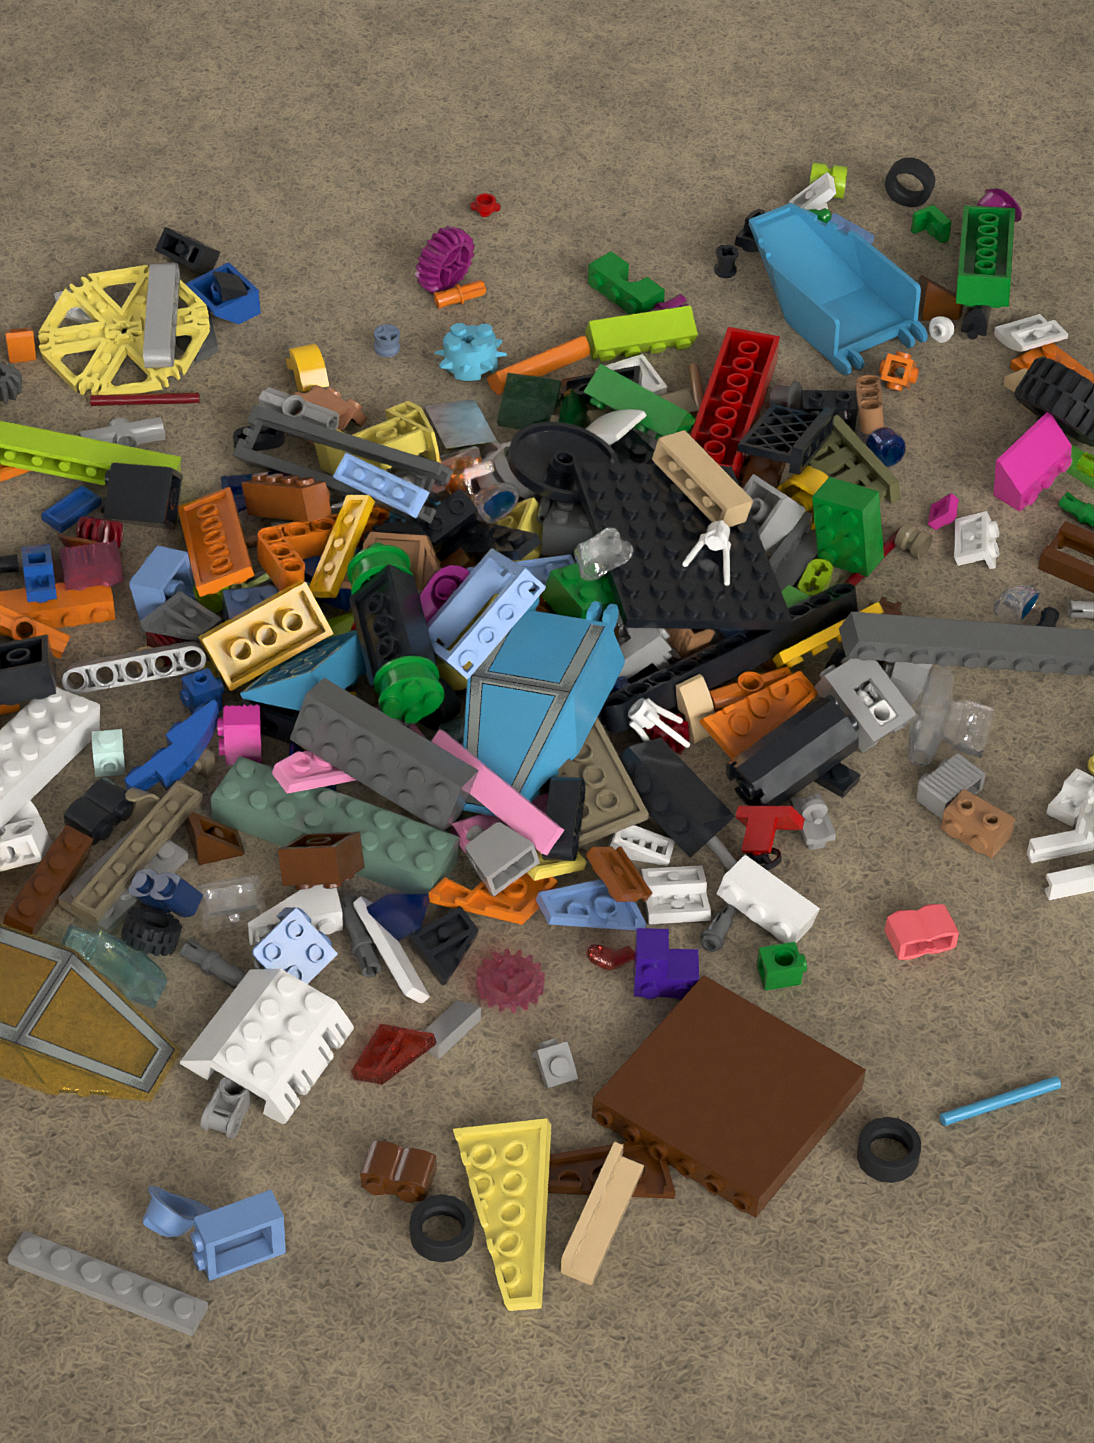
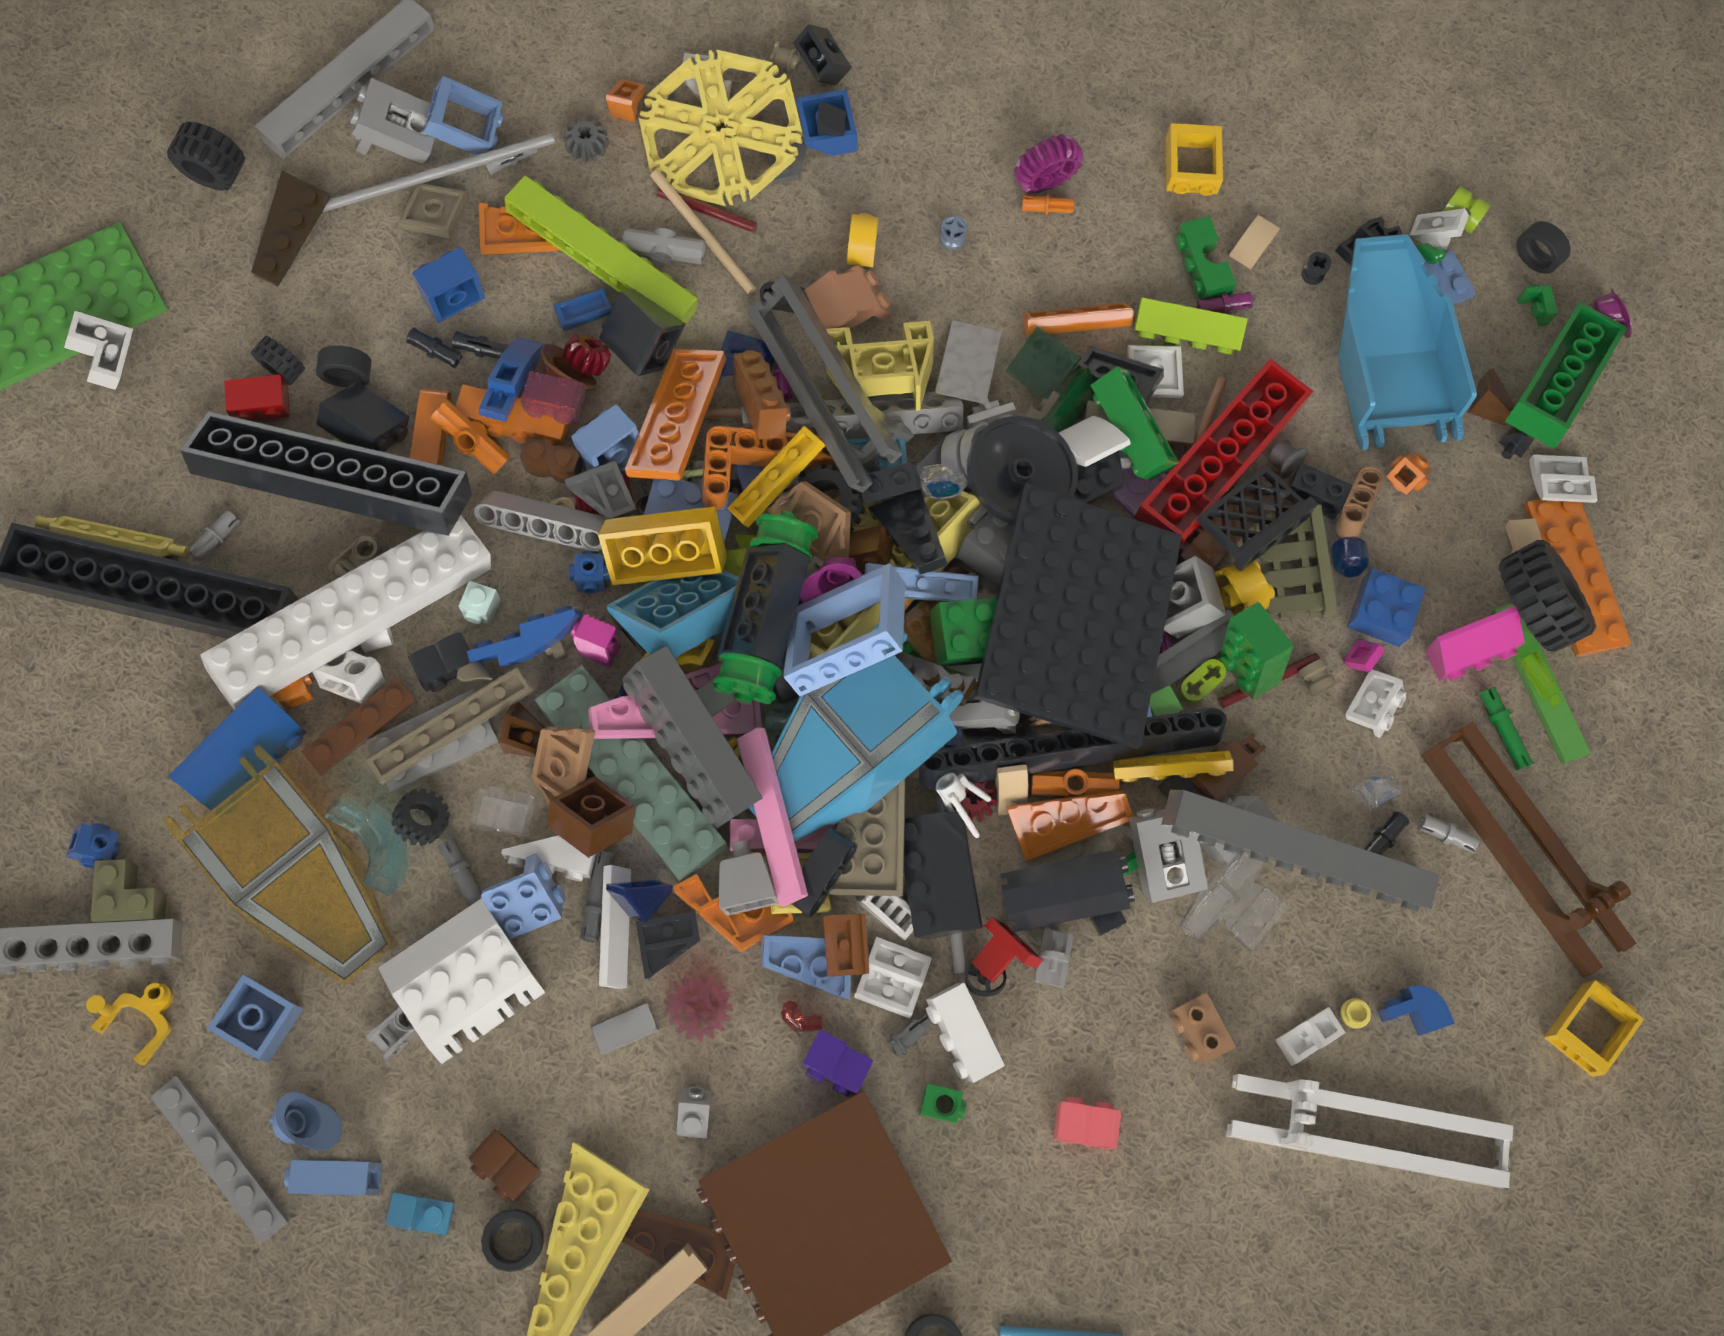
camera: 20 degrees right, 25 degrees up
(81, 1146) = (255, 1018): none -> medium blue brick
(112, 624) = (545, 460): none -> reddish brown brick
(150, 412) = (703, 232): none -> tan piece
(161, 315) = (754, 129): light grey beam -> none
(165, 892) = (448, 785): dark blue brick -> none
(262, 829) = (561, 759): none -> medium nougat wing
(290, 404) = (829, 306): light grey piece -> none
(332, 1247) = (420, 1213): none -> dark azure slope
(381, 485) = (835, 435): light blue tile -> none
(390, 1052) = (558, 1038): clear red wing -> none
(465, 470) = (933, 436): clear orange bracket -> none
(470, 351) = (1019, 282): medium azure brick -> none
(485, 205) = (1128, 100): red plate -> none
(567, 204) = (1194, 137): none -> yellow window
(600, 554) = (990, 613): clear piece -> none
(661, 262) = (1254, 242): none -> tan slope
(702, 479) = (1136, 554): tan brick -> none
(716, 539) = (1111, 632): white plant -> none
(939, 469) = (1386, 607): none -> blue brick
(941, 329) = (1480, 435): white plate -> none
(947, 782) = (1200, 974): light grey brick -> none

